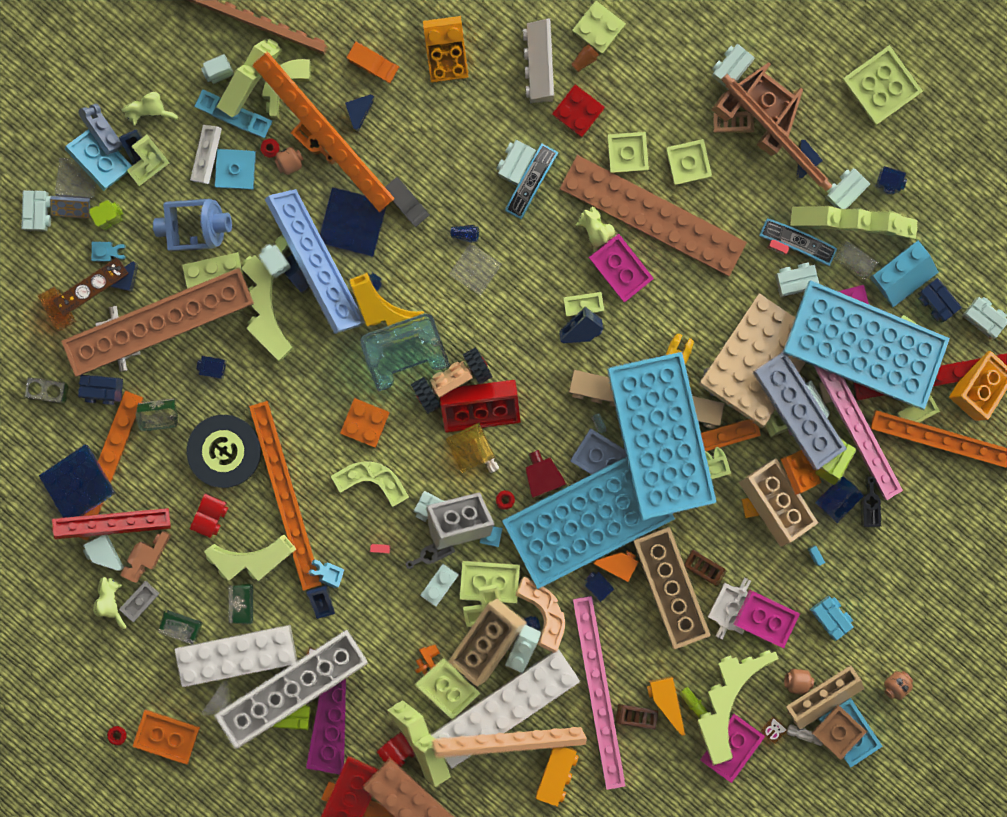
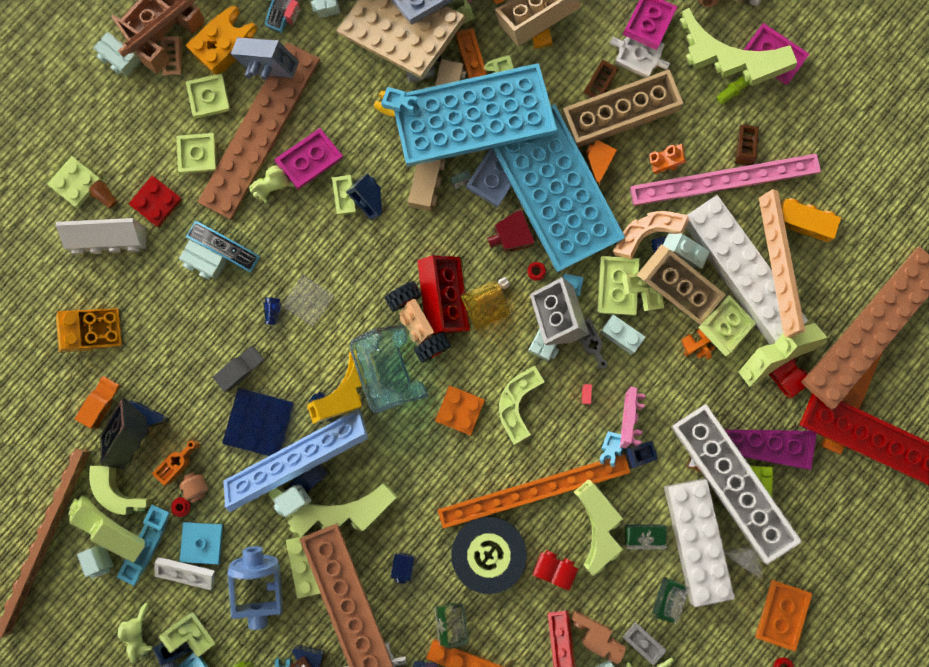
camera: 75 degrees left, 5 degrees down
(323, 131) = (160, 452): orange plate -> none
(339, 90) = (122, 435): none -> black slope
(356, 591) = (630, 418): none -> bright pink plate
(598, 586) = (620, 179): clear blue brick -> none
(619, 633) = (668, 159): none -> orange hips
(665, 697) = (726, 116): light orange slope -> none
(675, 357) = (396, 99): none -> medium azure plate
(723, 221) = (264, 58): none -> sand blue piece
(745, 183) = (216, 40): none -> light orange brick
(773, 730) = (755, 16): tile -> none

